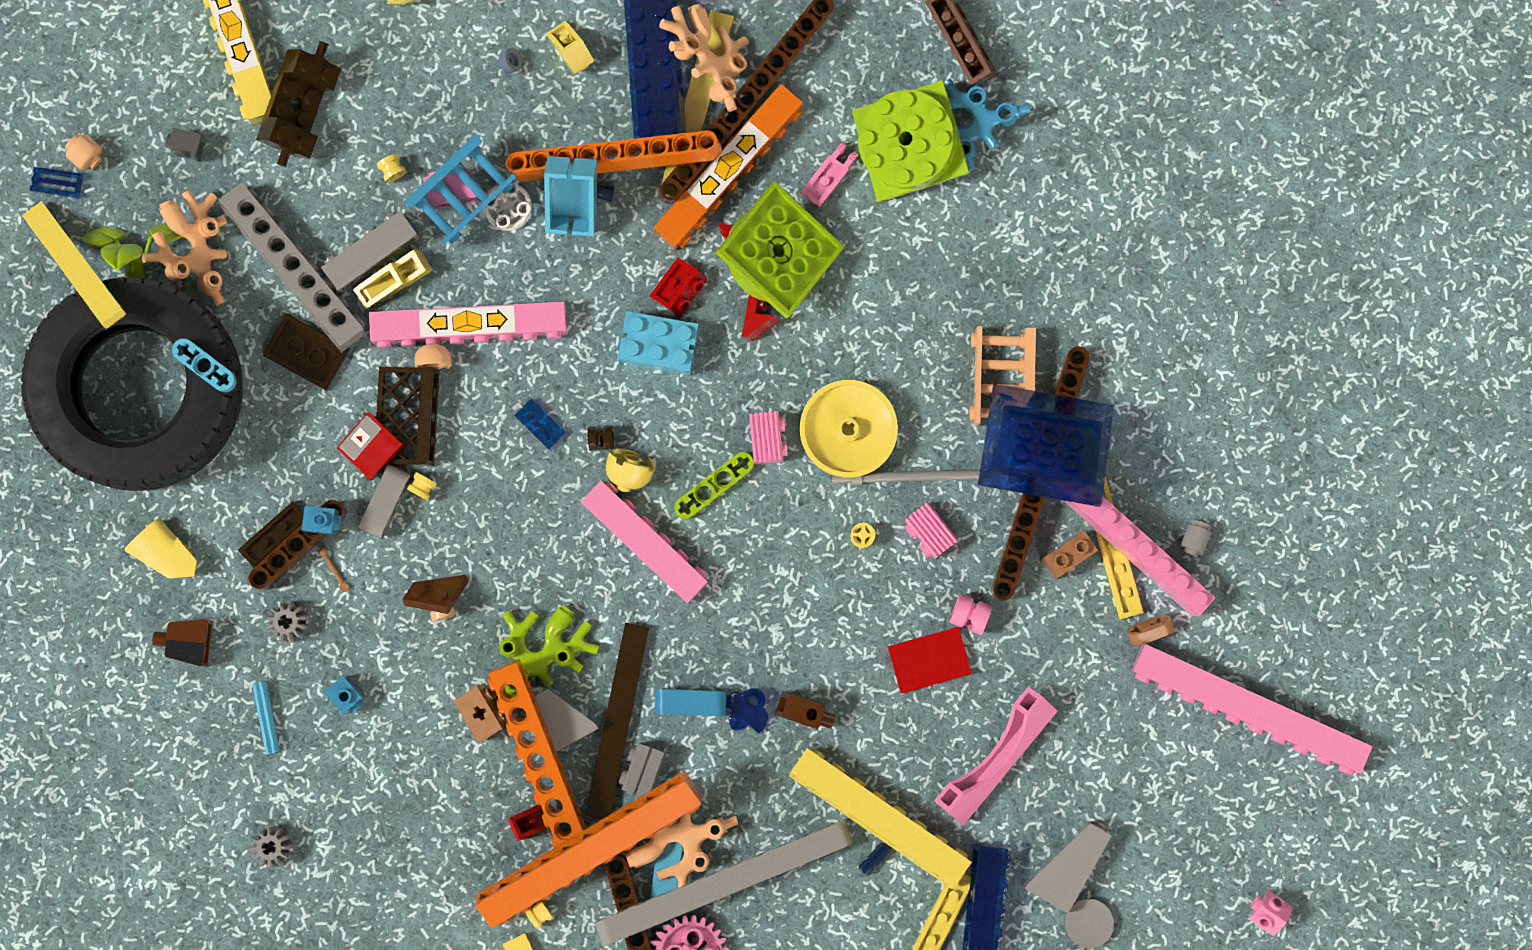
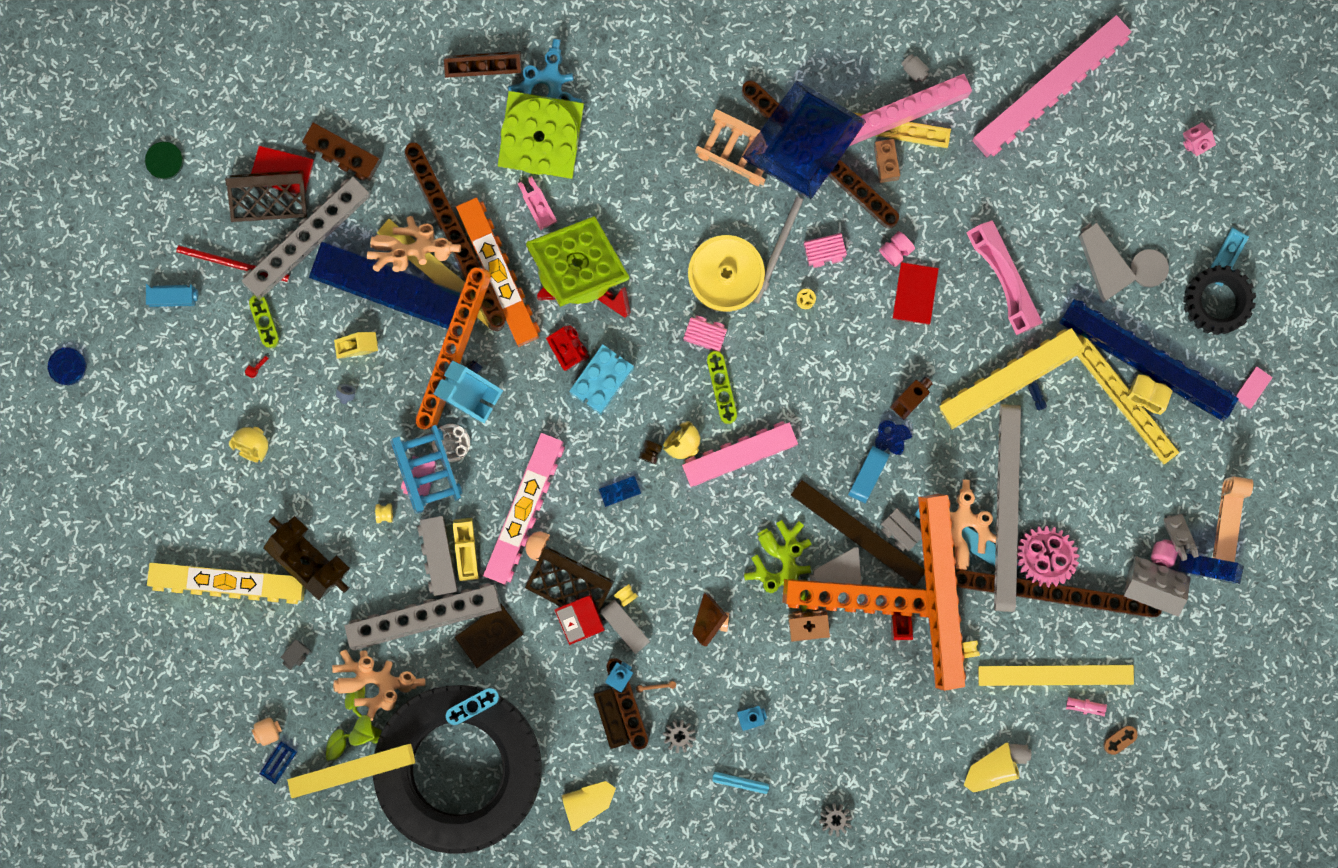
camera: 65 degrees left, 0 degrees up
(186, 641) = (659, 815): reddish brown torso -> none
(1150, 630) = (965, 129): medium nougat beam -> none

